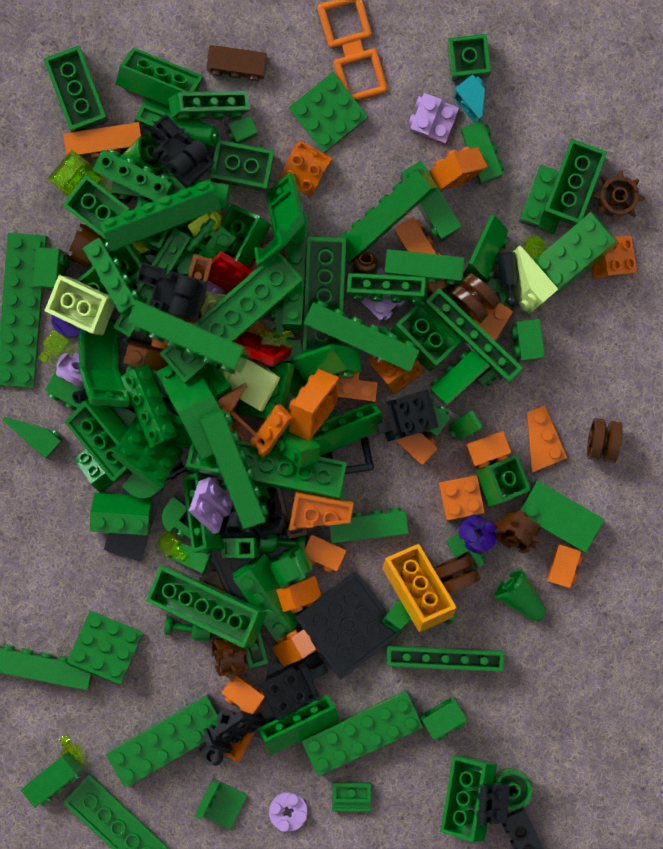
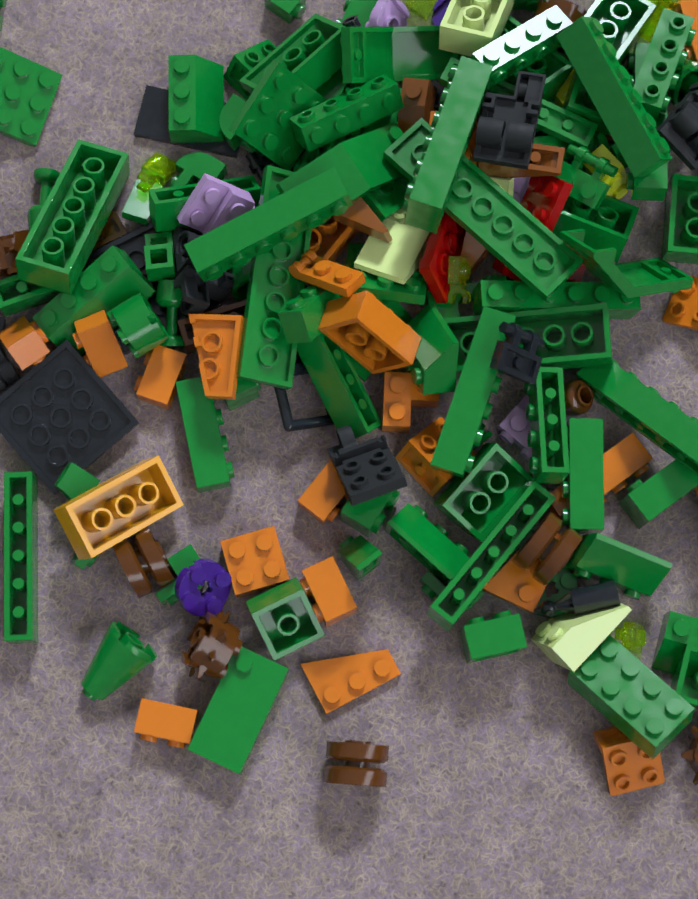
camera: 80 degrees right, 10 degrees down
(344, 307) = (514, 361): none -> black plate

